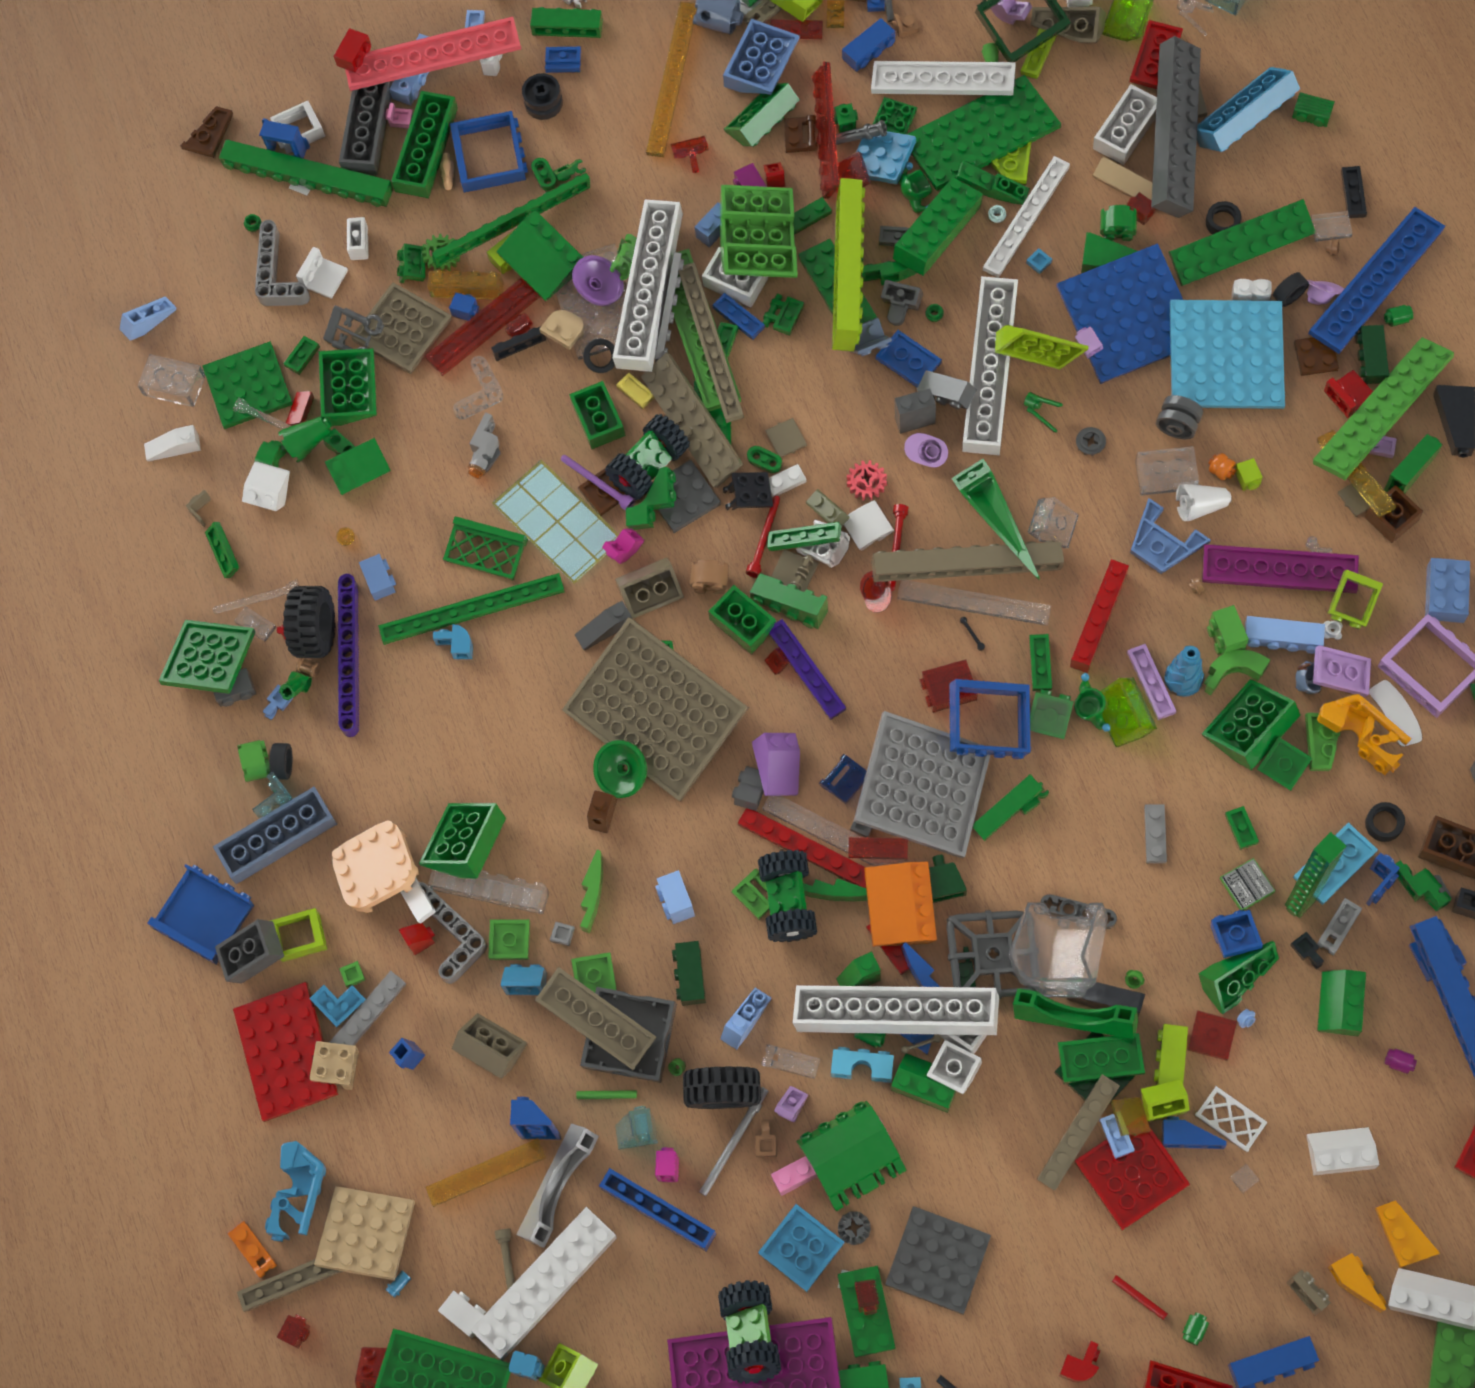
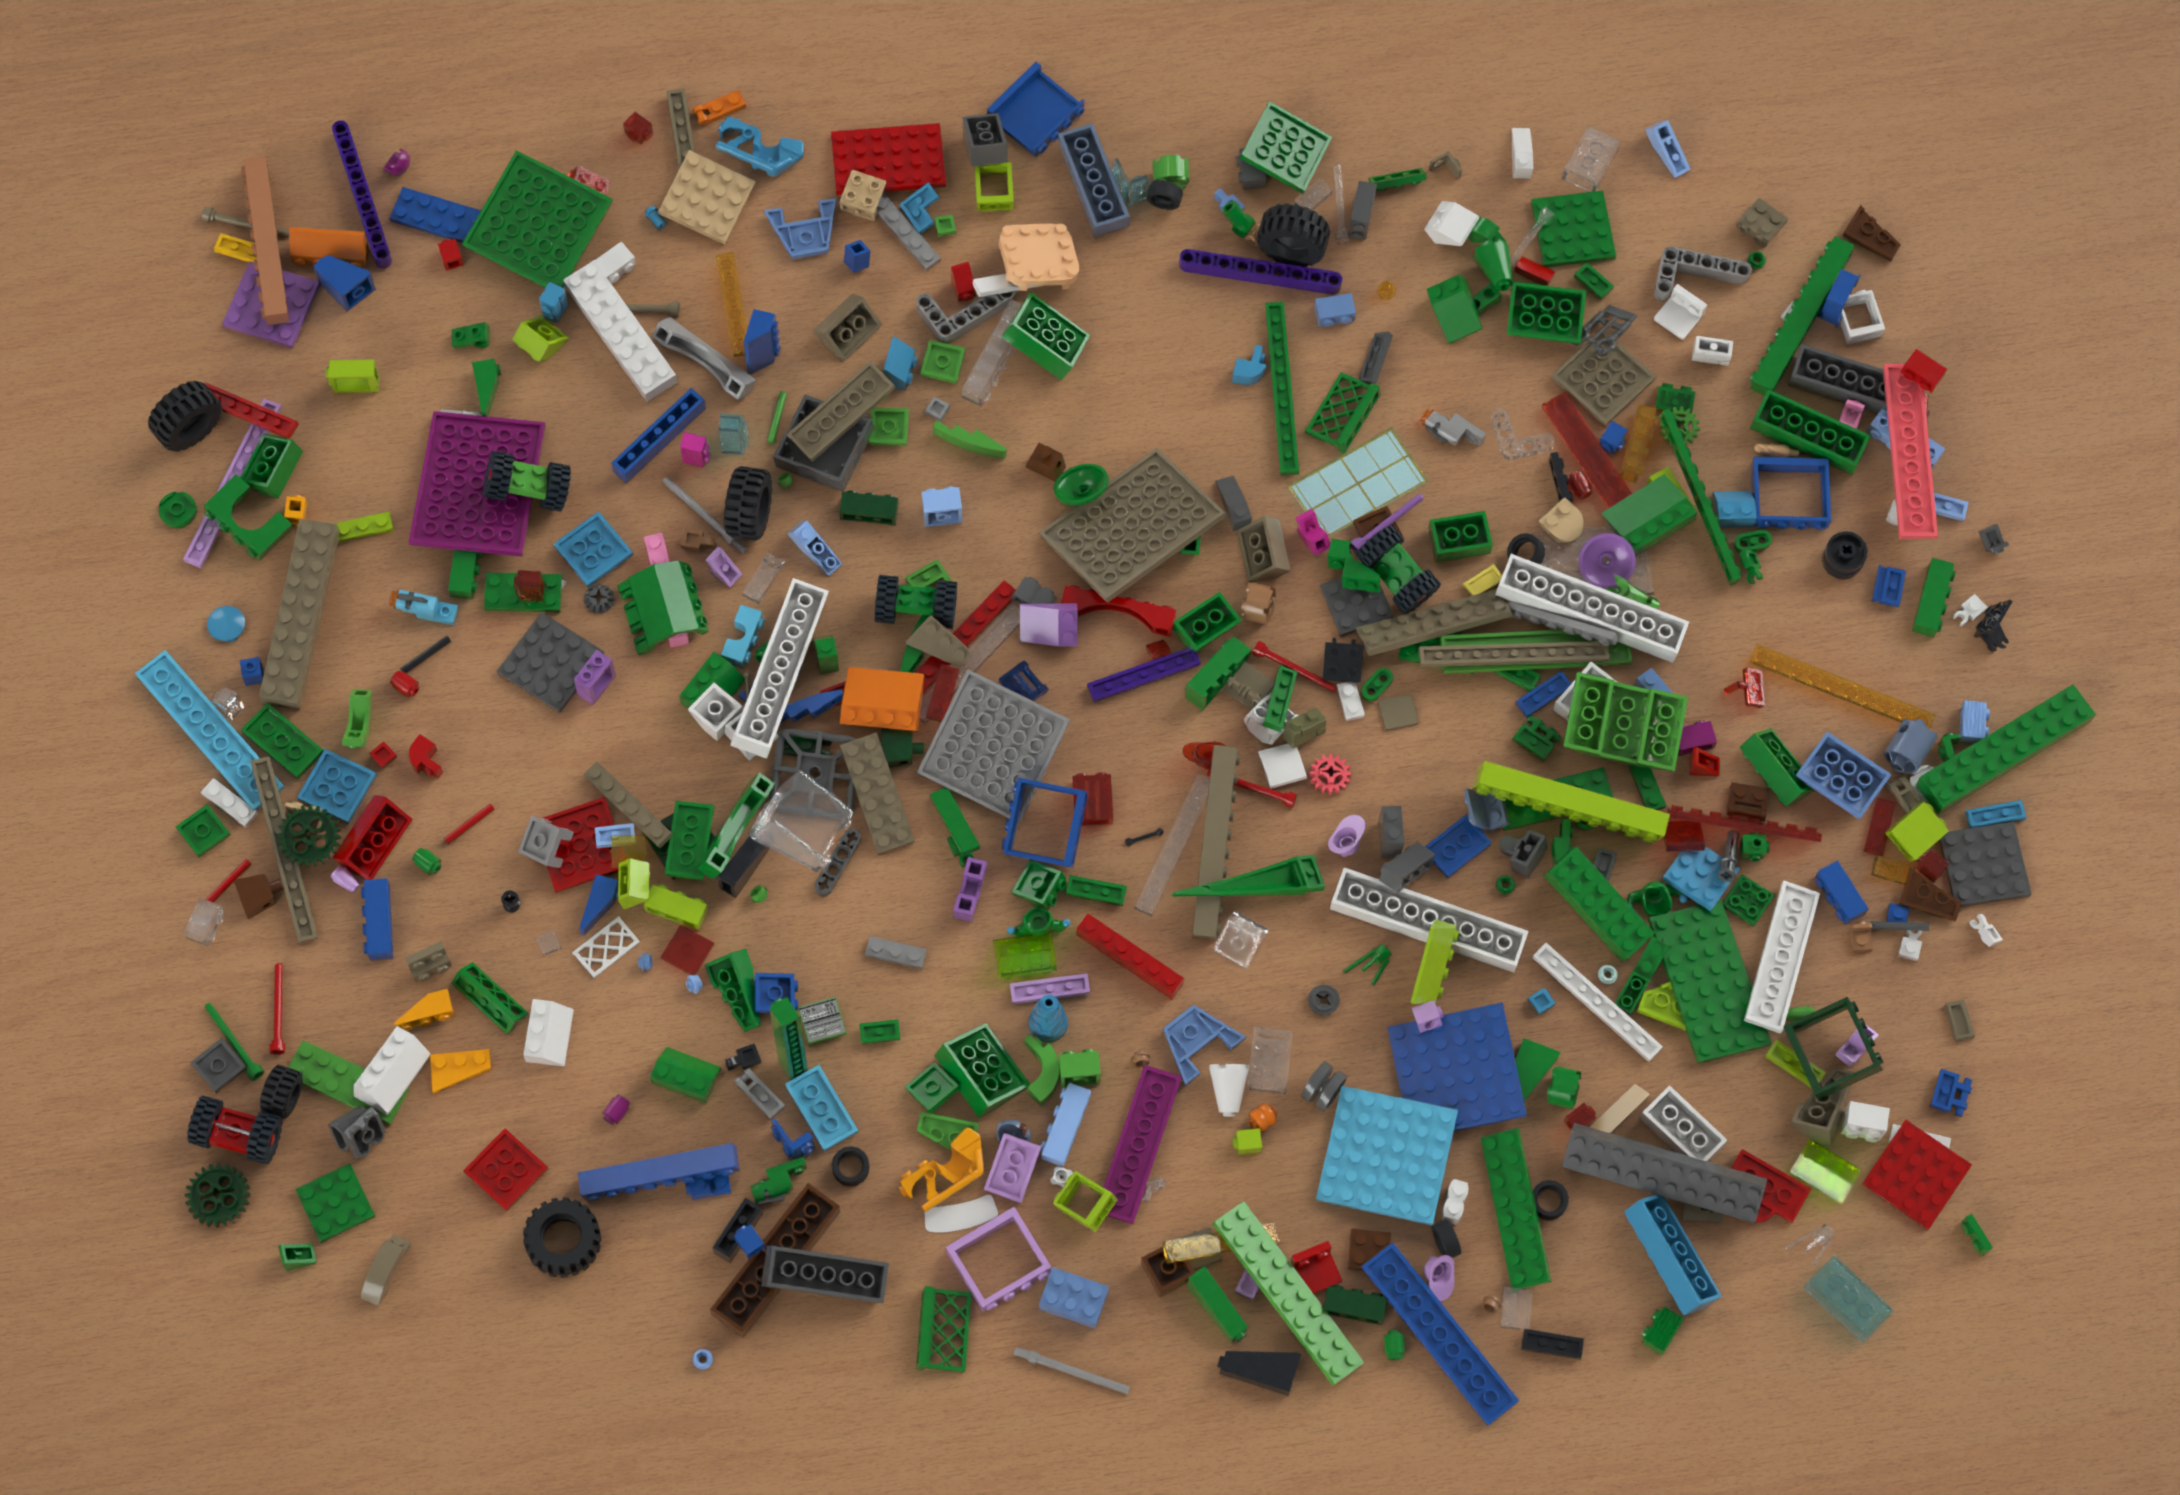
camera: 90 degrees right, 0 degrees up
(212, 225) = (1761, 222): none -> dark tan plate
(265, 570) = (1362, 210): none -> dark grey brick
(391, 1114) = (807, 236): none -> medium blue wing
(422, 529) = (1375, 357): none -> dark grey plate
(511, 192) = (1735, 508): none -> dark azure slope
(745, 670) = (1156, 618): none -> red arch
(826, 862) = (939, 642): none -> dark tan wing
(945, 1197) = (594, 681): none -> medium lavender window
(999, 887) = (877, 793): none -> dark tan plate
(1062, 776) = (970, 890): none -> medium lavender arch
(1147, 1204) = (542, 841): none -> light grey panel
(1215, 1221) = (505, 901): none -> black bush
(1237, 1073) = (645, 961): none -> medium blue plate
(1326, 1222) = (486, 998): none -> green fence

